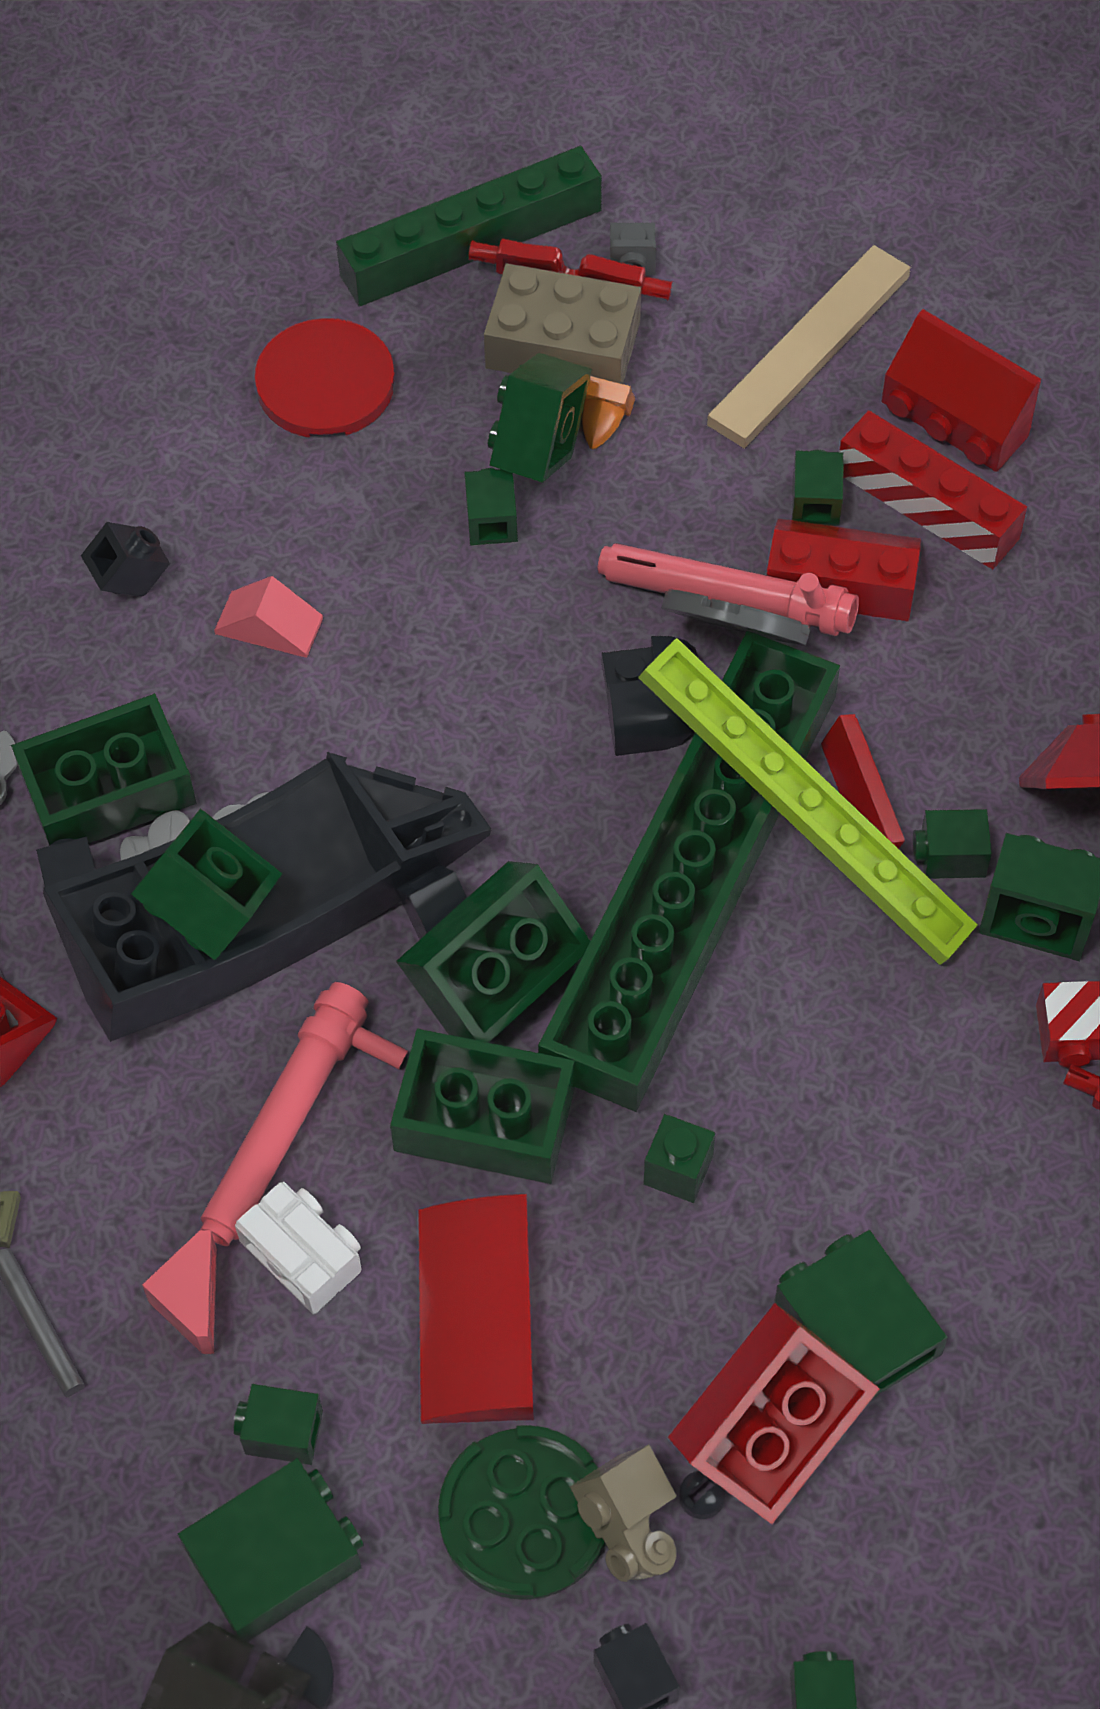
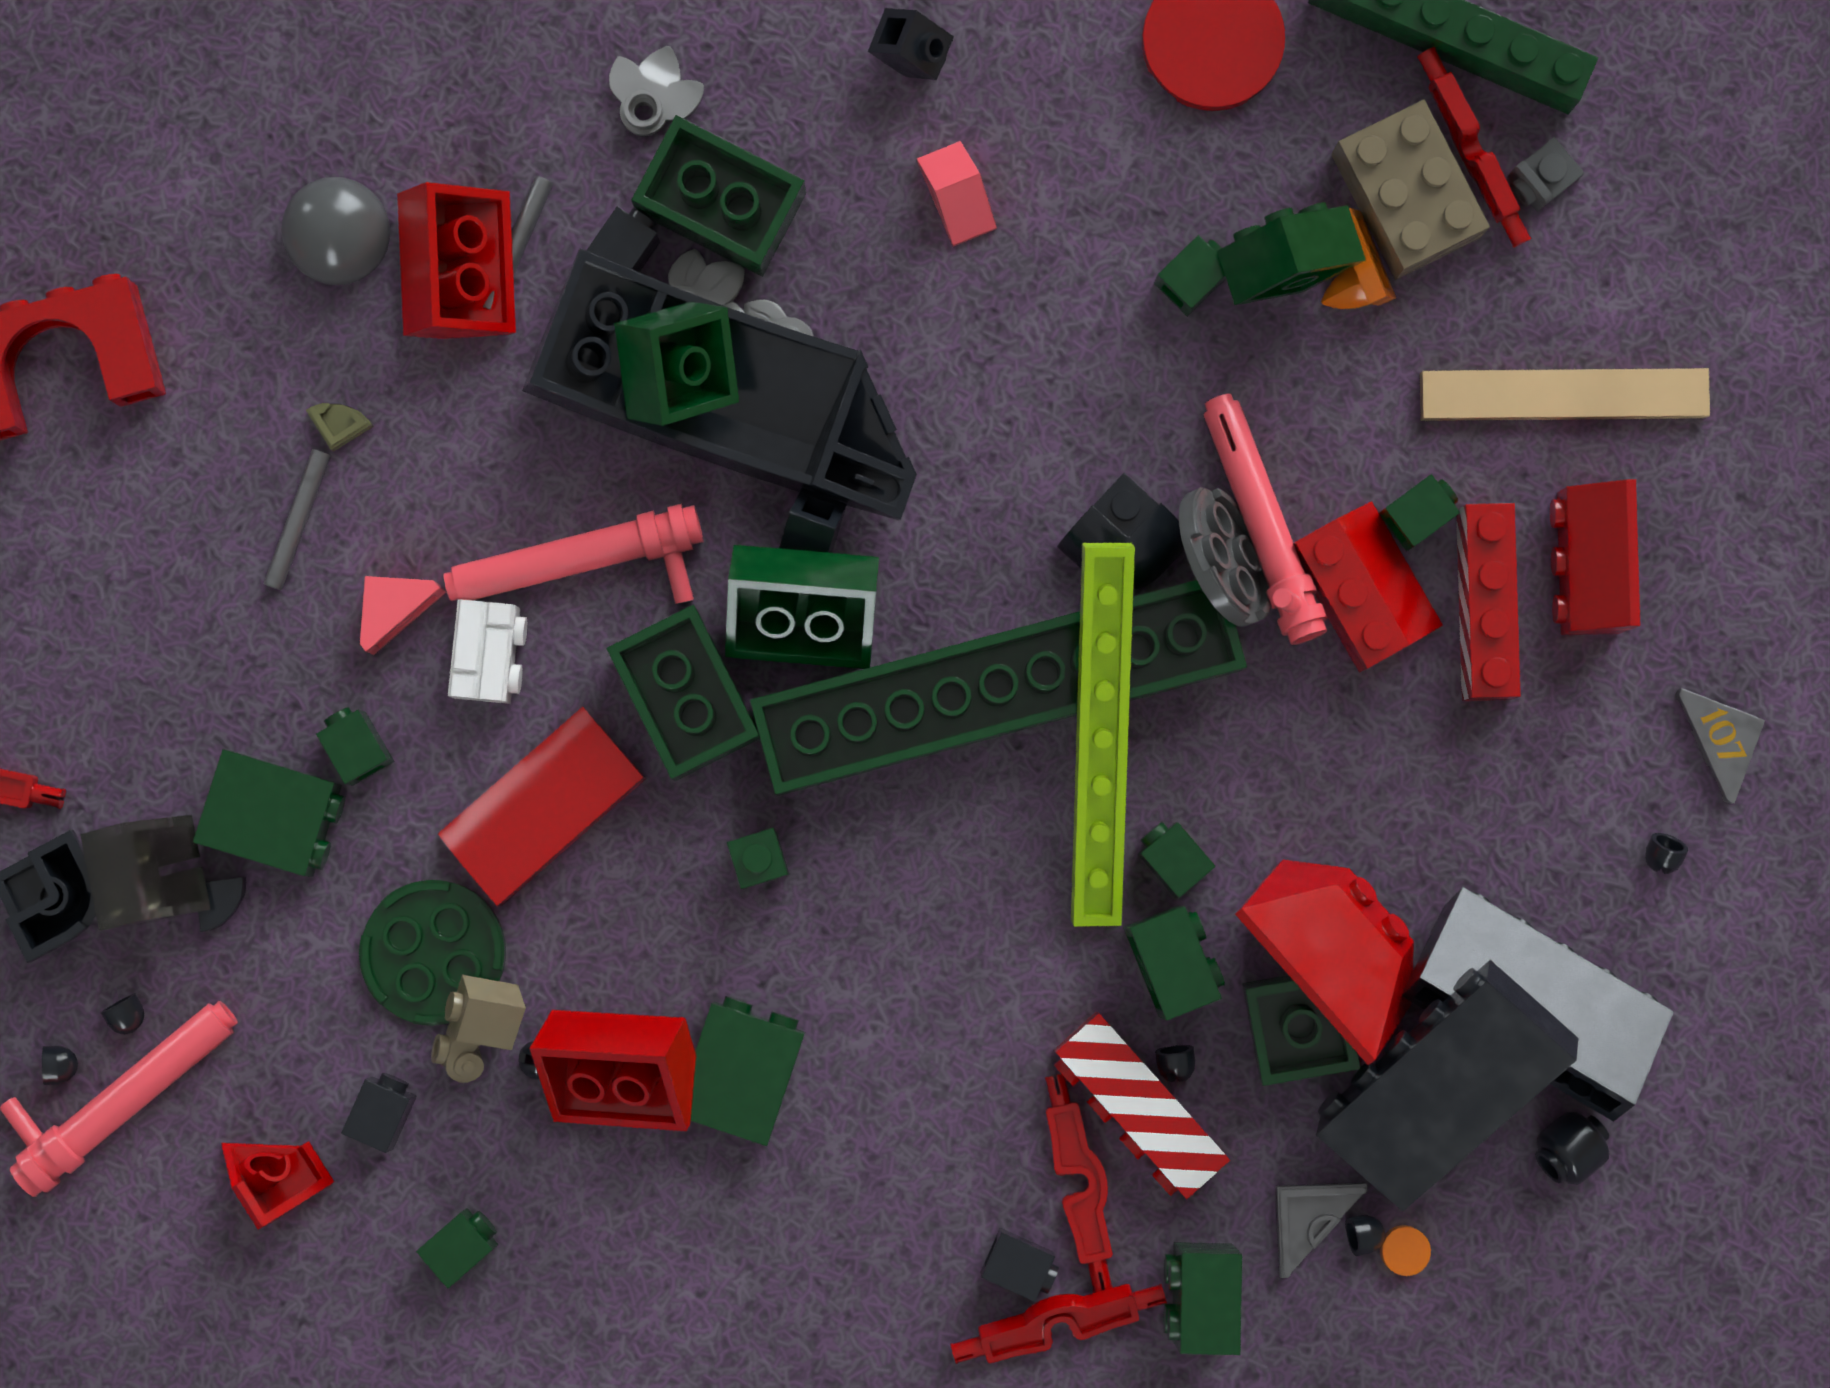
camera: 45 degrees right, 25 degrees up
(858, 776) = (1169, 755): red tile -> none

